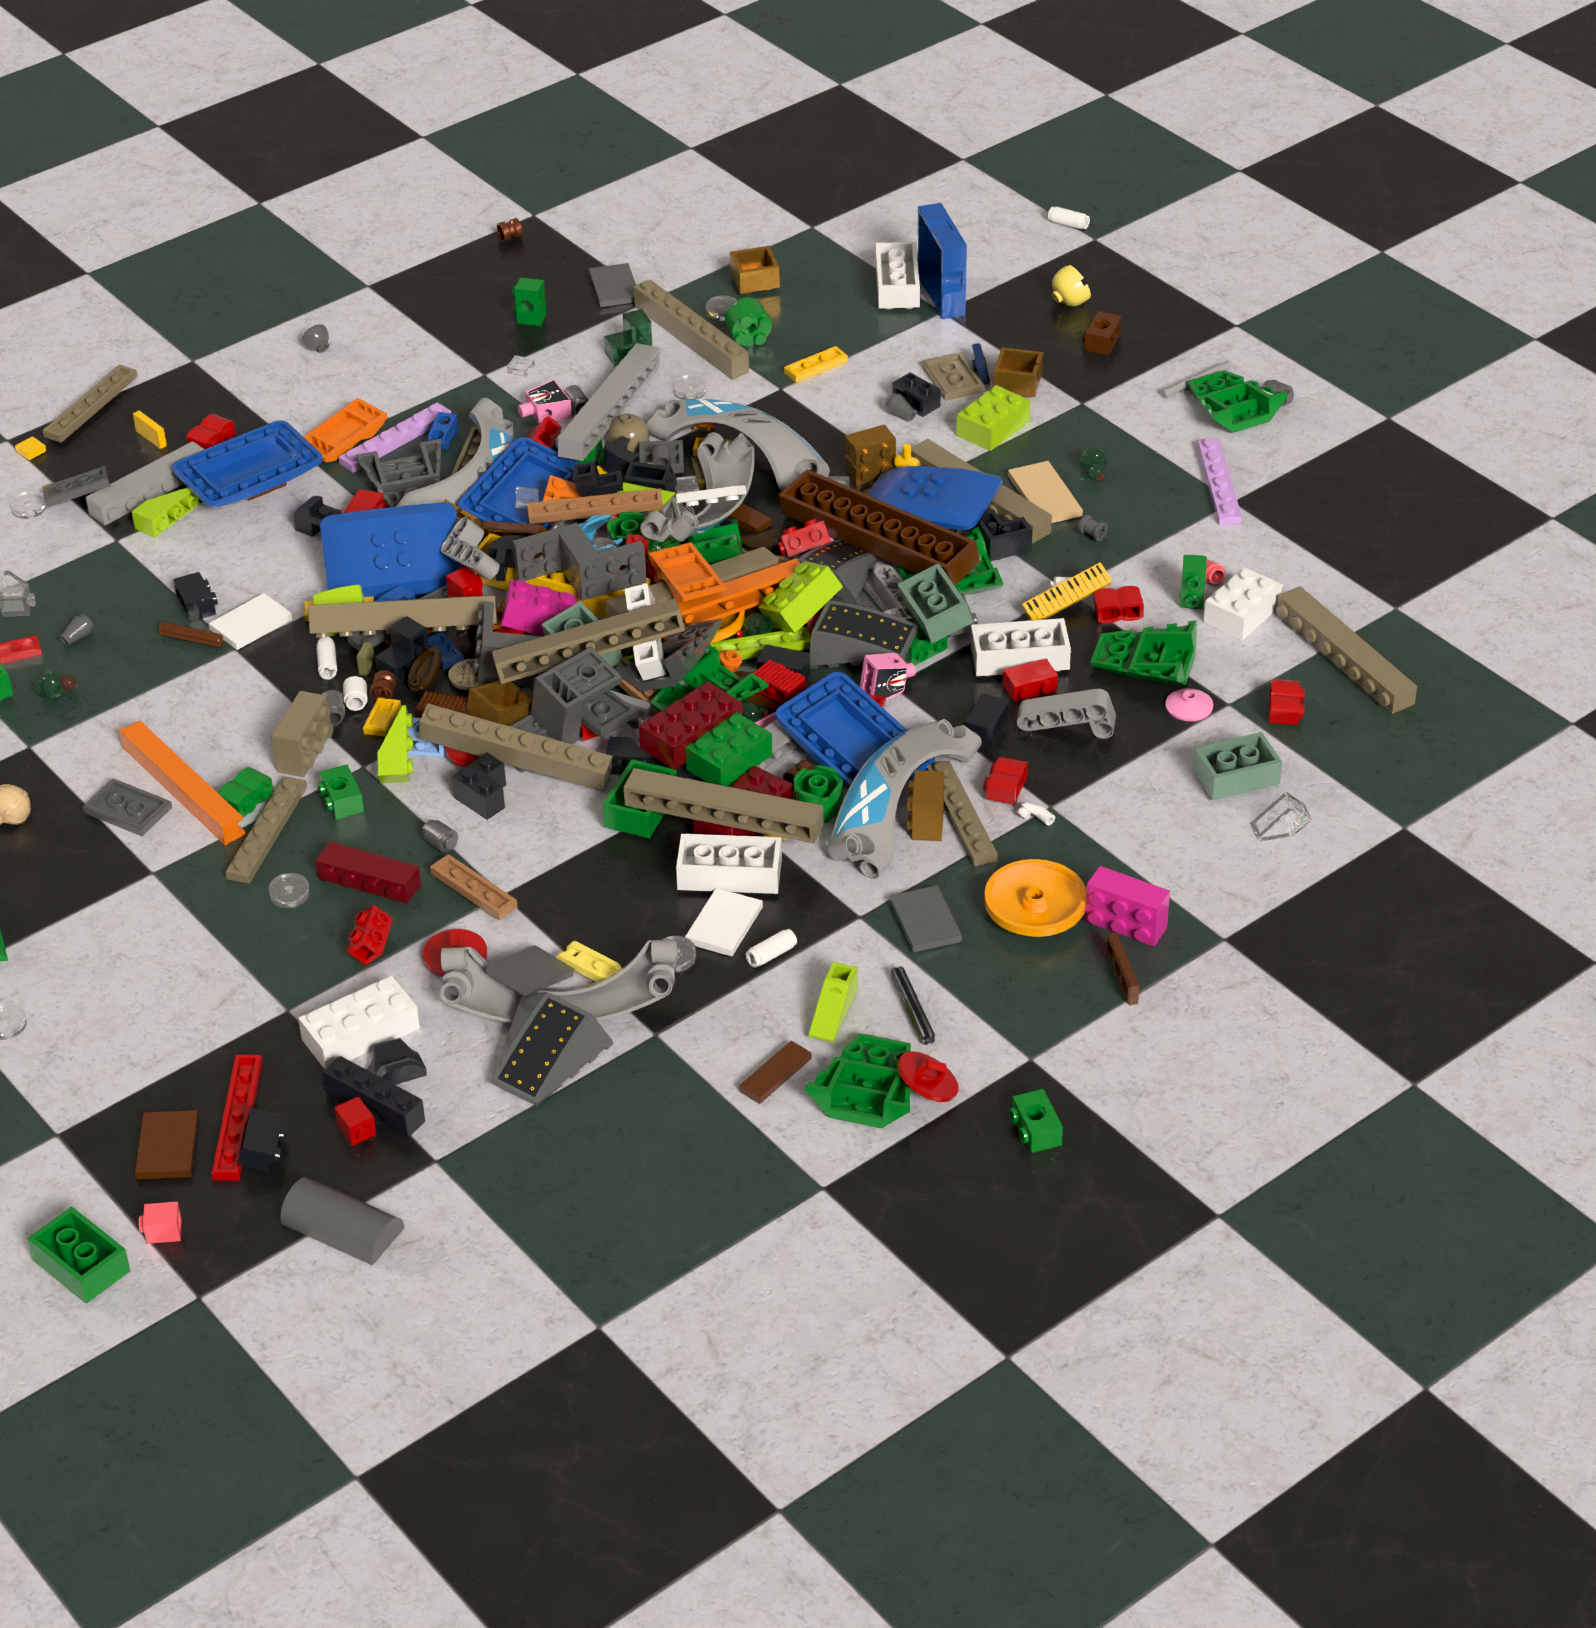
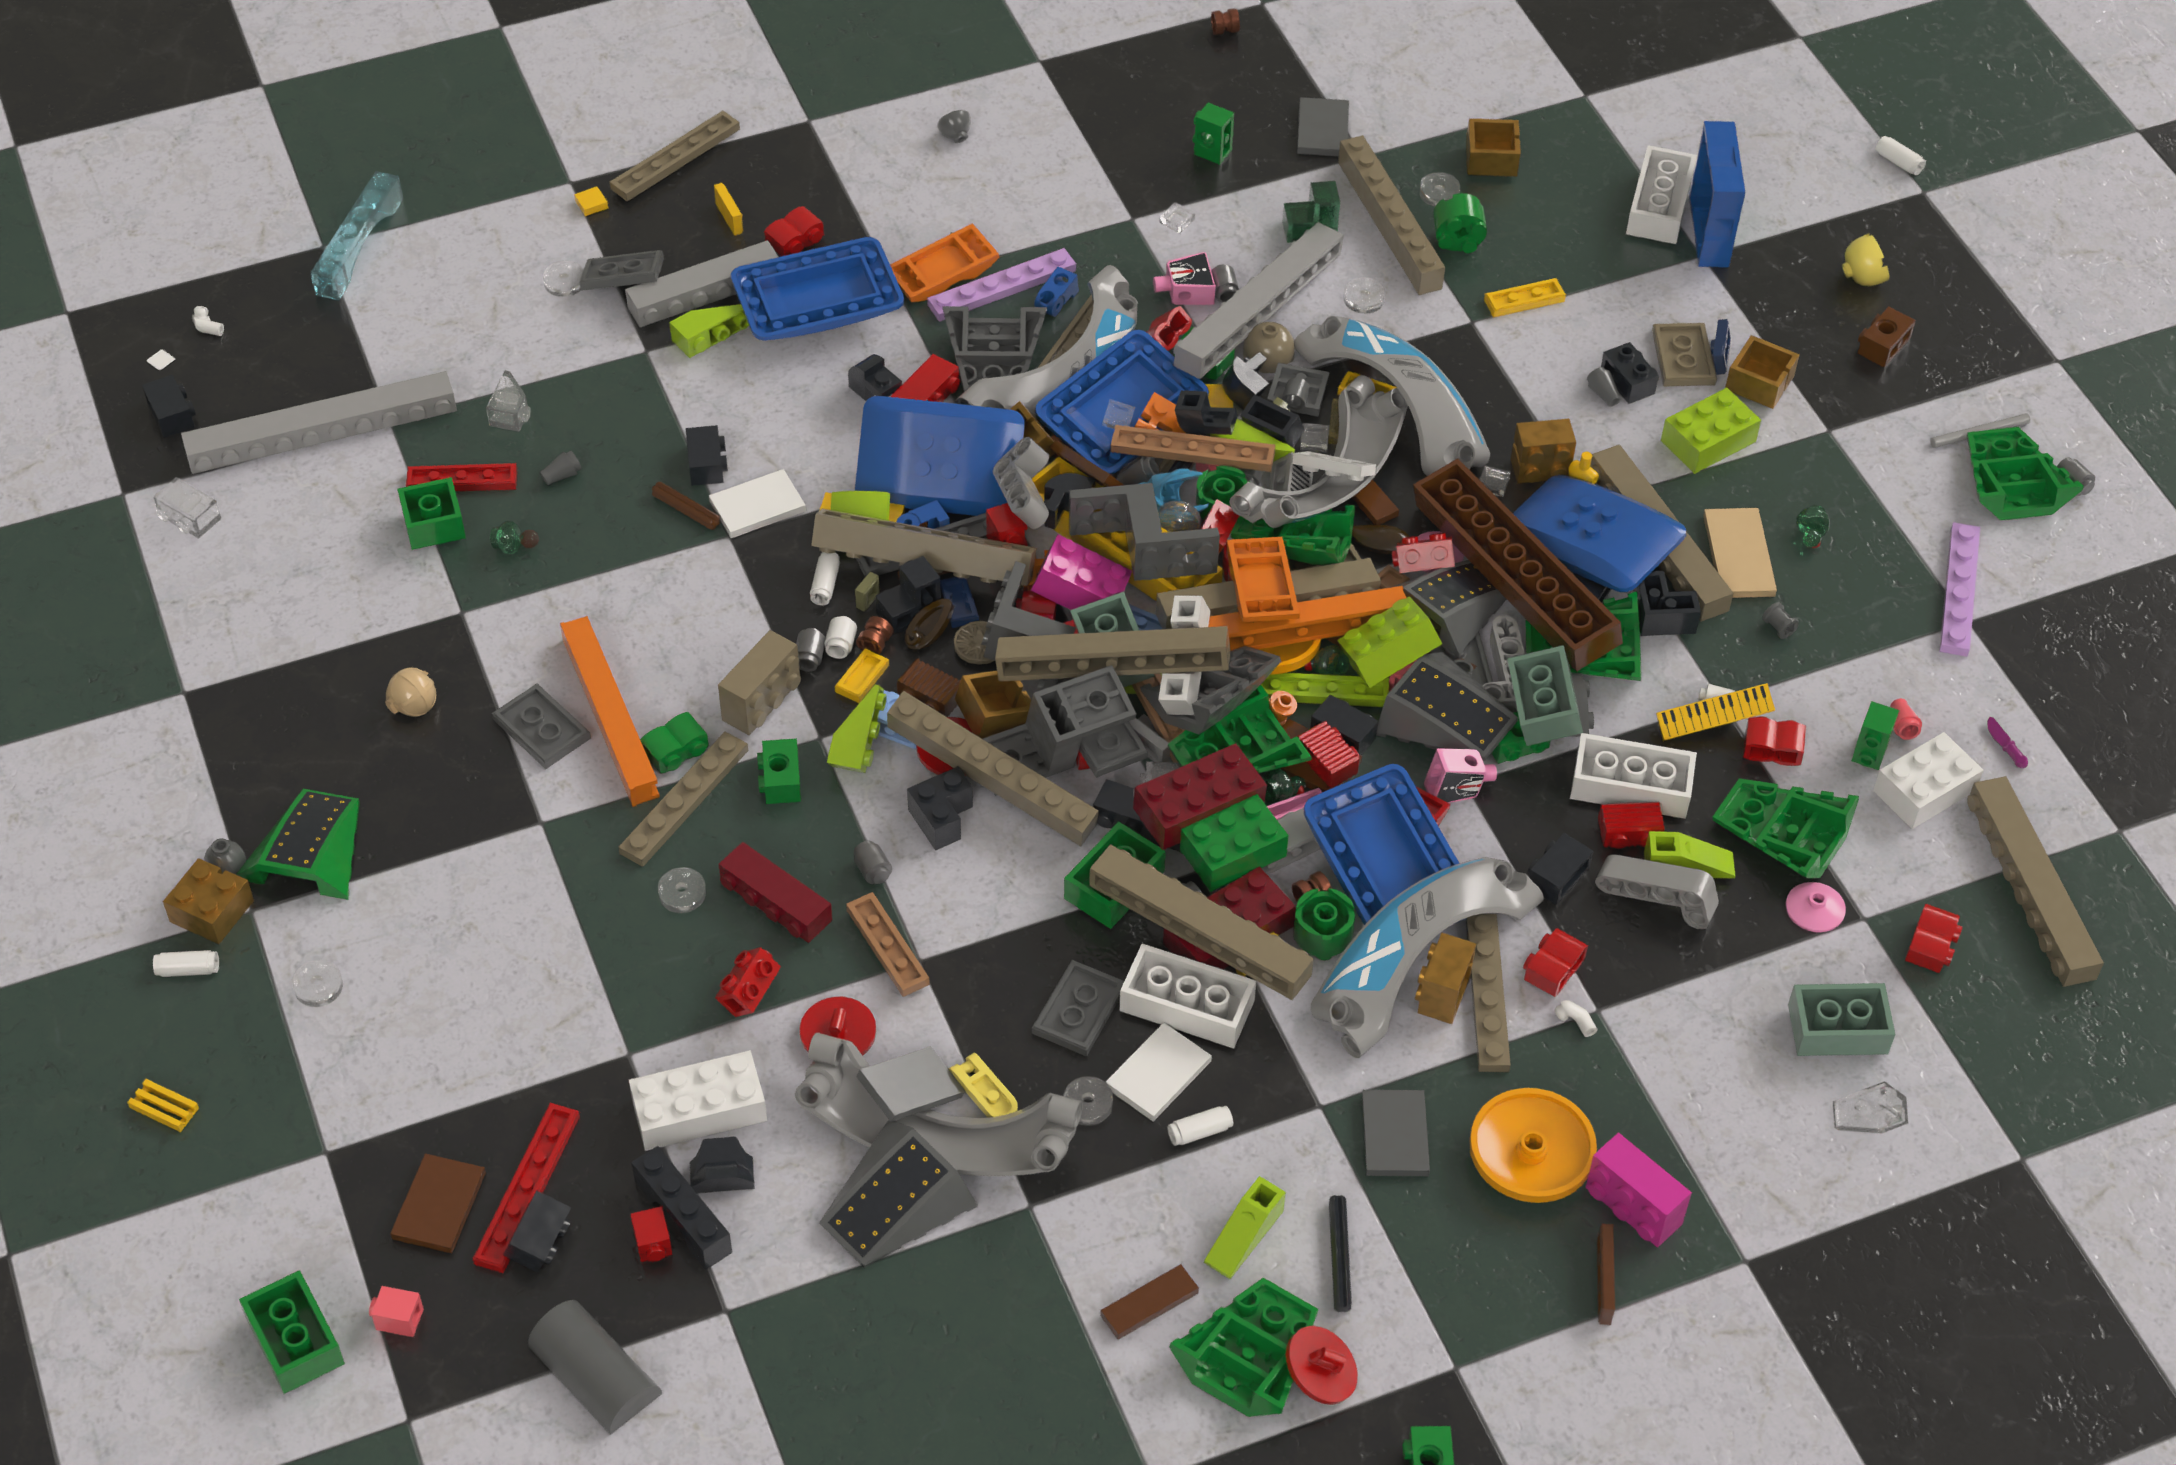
camera: 15 degrees right, 10 degrees up
(644, 895) = (1078, 1008): none -> dark grey tile
(1075, 682) = (1689, 852): none -> lime slope
(1293, 571) = (2006, 743): none -> magenta piece

